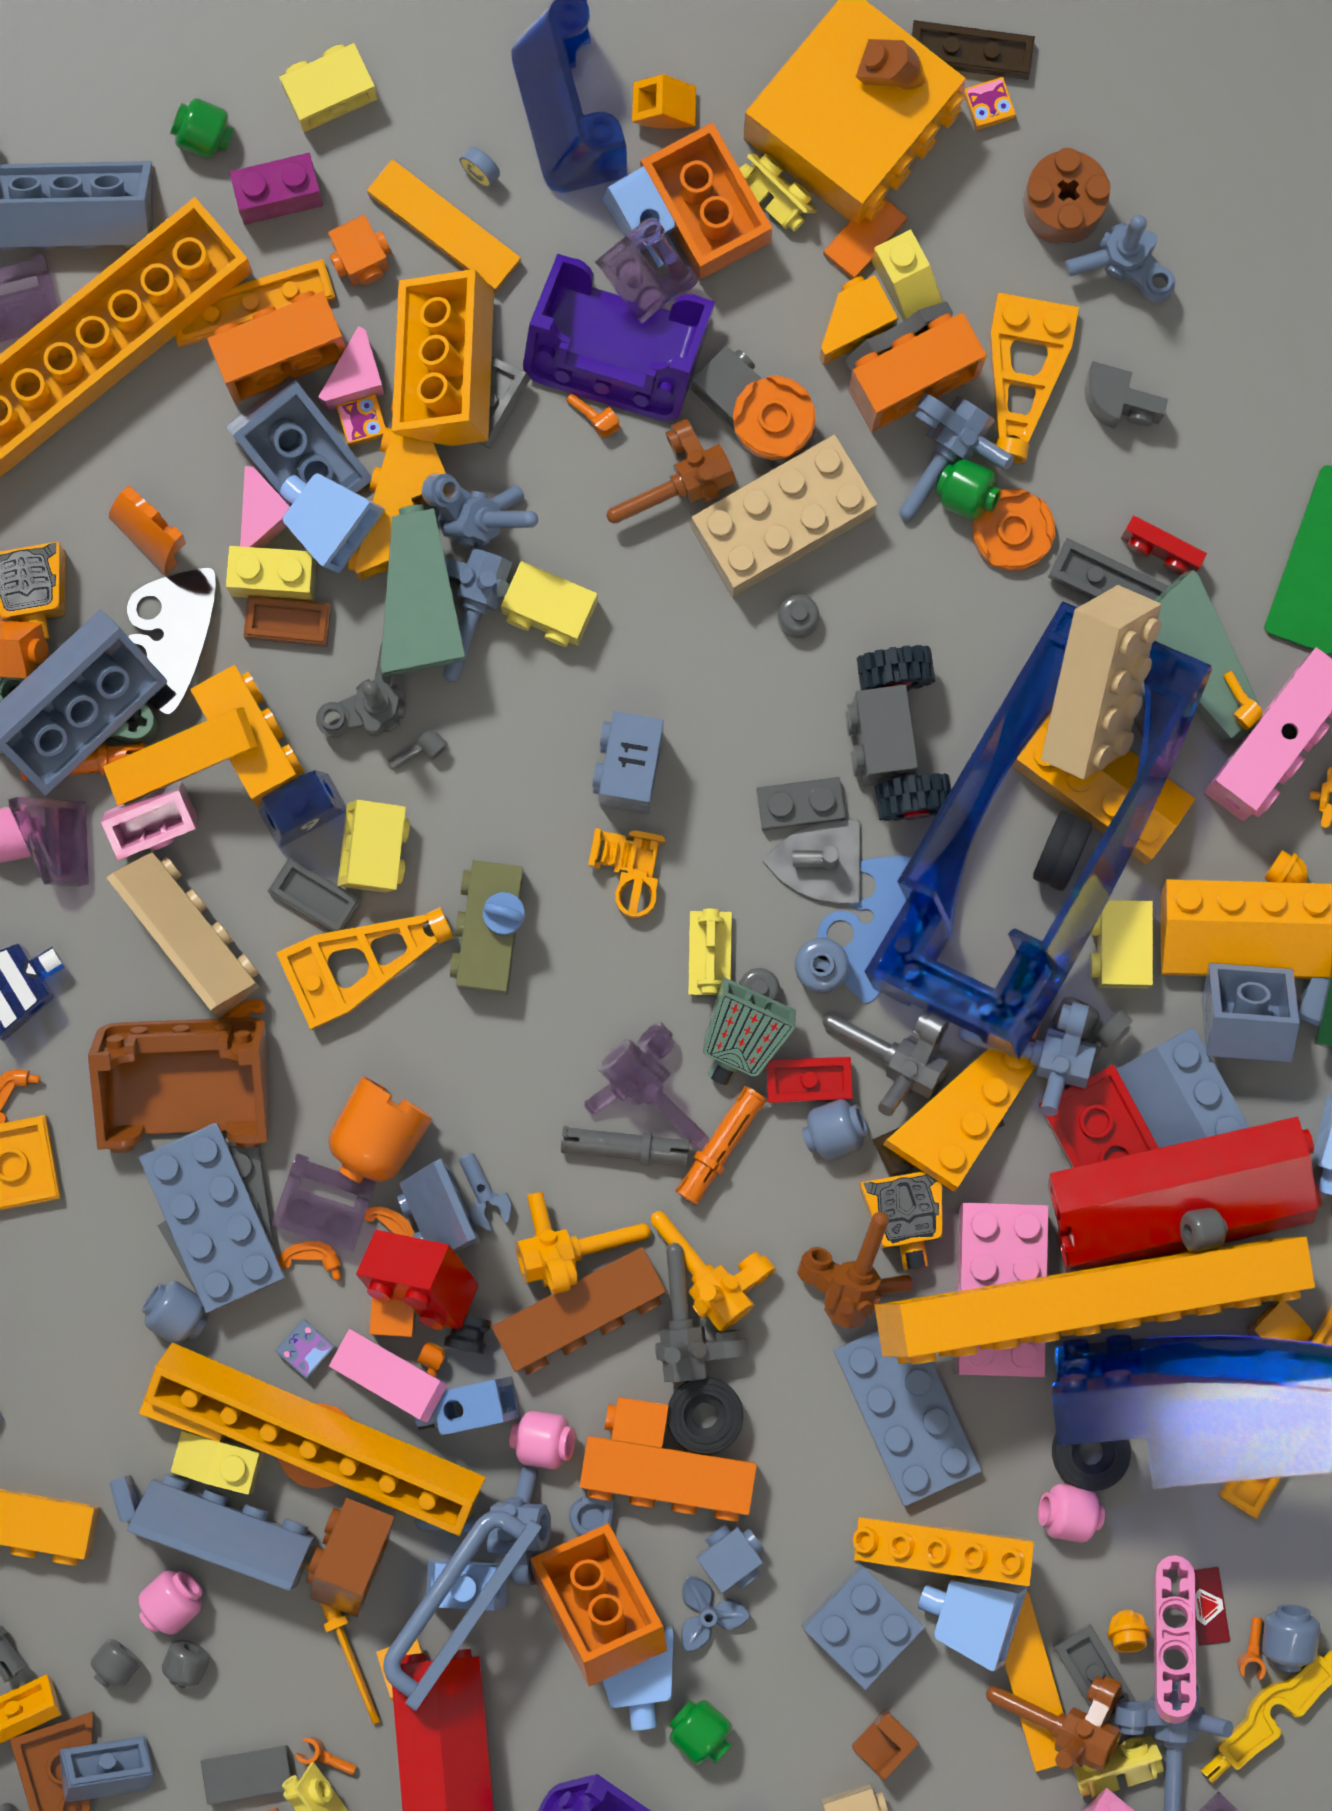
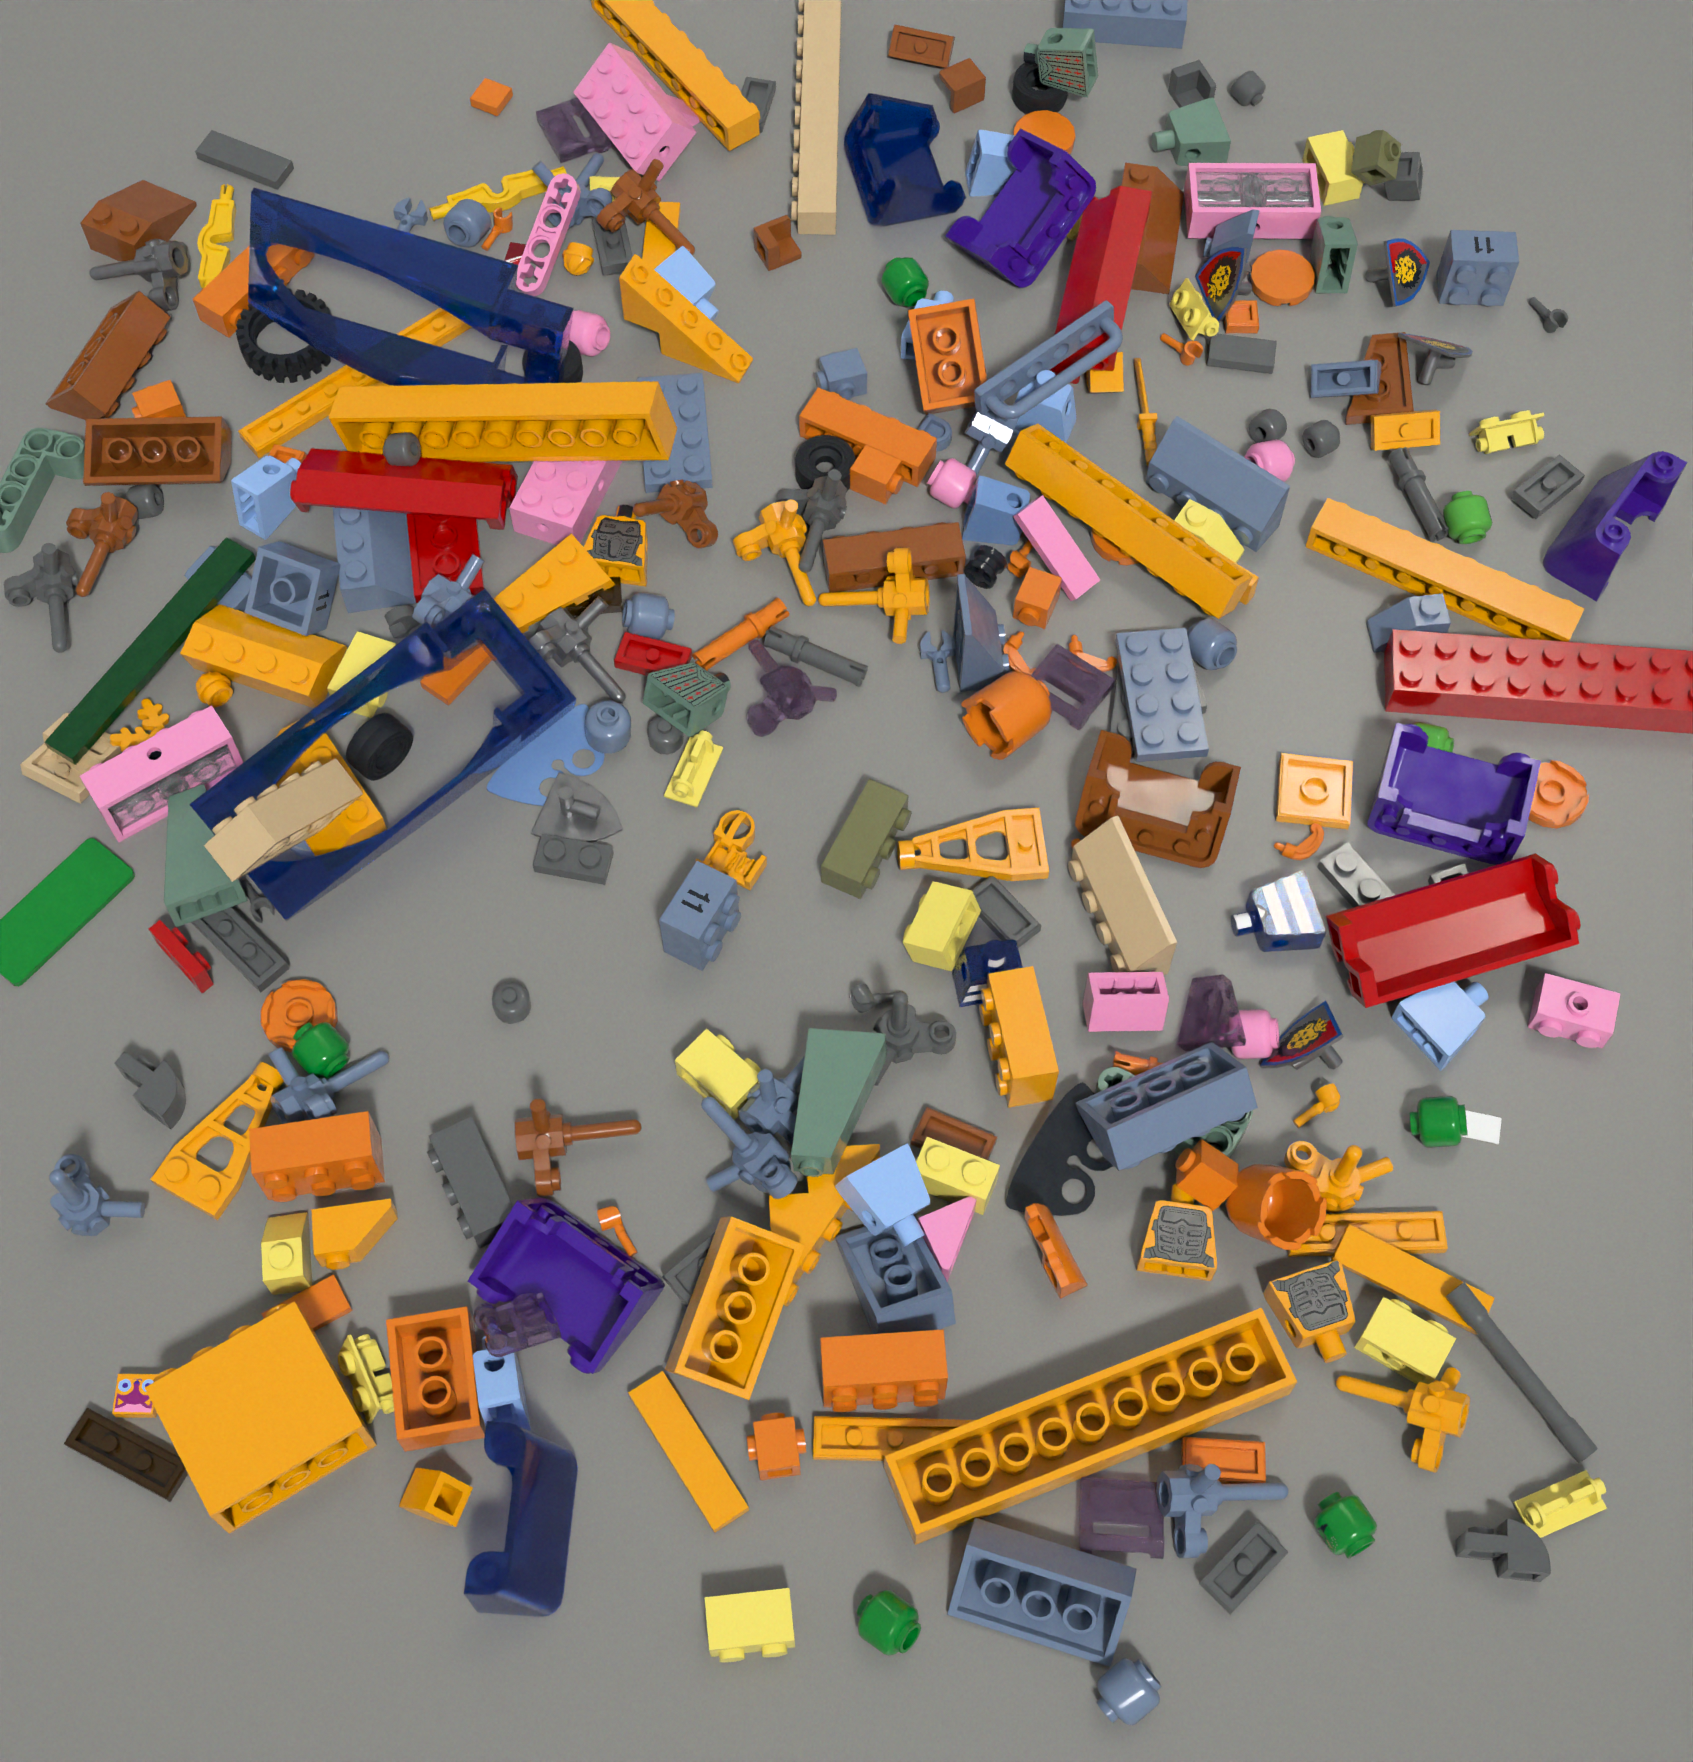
camera: 160 degrees left, 20 degrees down
(124, 1497) = (1284, 536): sand blue tile -> none
(180, 756) = (1083, 1024): light orange tile -> none
(276, 188) = (834, 1533): magenta brick -> none
(305, 1348) = (1114, 597): tile -> none
(352, 1555) = (1124, 436): dark orange brick -> none
(353, 375) = (818, 1322): bright pink slope -> none
(361, 420) = (828, 1293): tile -> none
(422, 1275) = (1015, 592): red brick -> none
(480, 166) = (632, 1492): sand blue tile -> none
(503, 913) = (849, 830): medium blue tile -> none
(697, 1630) = (875, 348): sand blue plant -> none
(774, 417) = (459, 1154): orange tile -> none
(783, 515) = (486, 1079): tan brick -> none
(862, 1626) = (764, 309): sand blue brick -> none
(885, 733) = (478, 874): brick -> none
(890, 65) = (208, 1414): dark orange plate -> none
(915, 323) = (301, 1197): dark grey tile -> none
(1065, 174) = (94, 1262): dark orange brick -> none
(1250, 711) = (180, 790): light orange hand -> none

